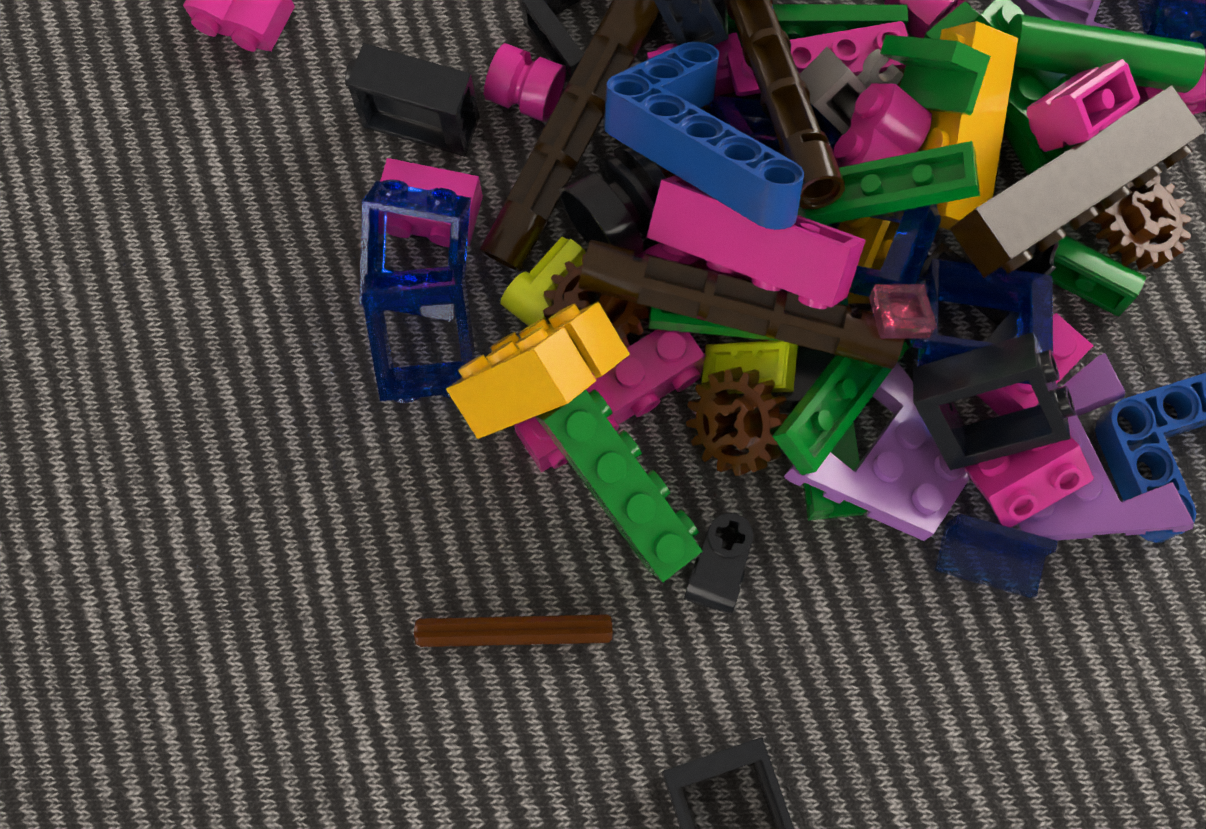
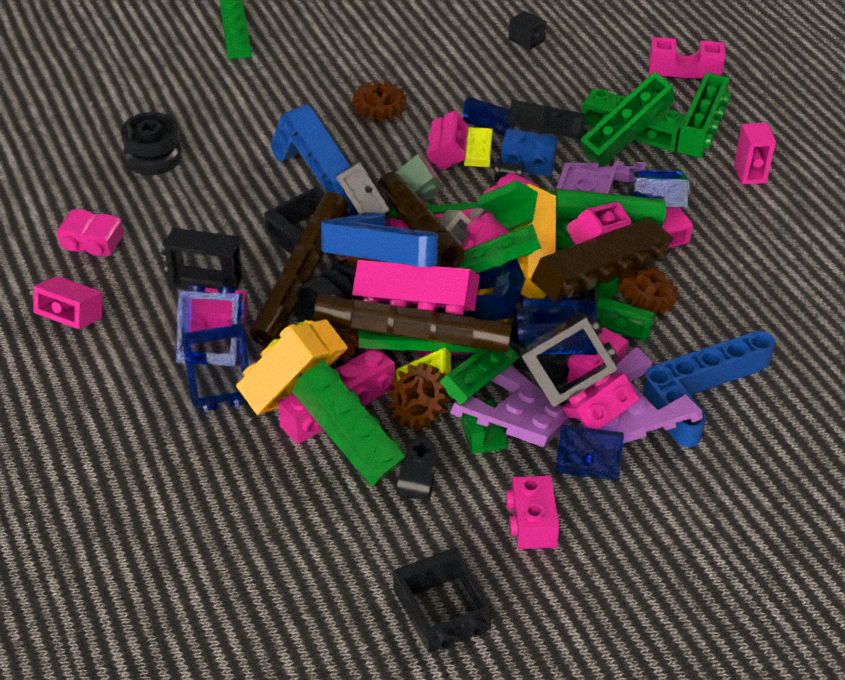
camera: 10 degrees left, 30 degrees down
(196, 161) = (67, 302): none -> dark pink brick
(513, 630) = (287, 521): reddish brown axle -> none
(520, 81) = (266, 252): dark pink wheel -> none
(891, 662) = (533, 512): none -> dark pink brick
(902, 311) = (507, 311): clear pink plate -> none

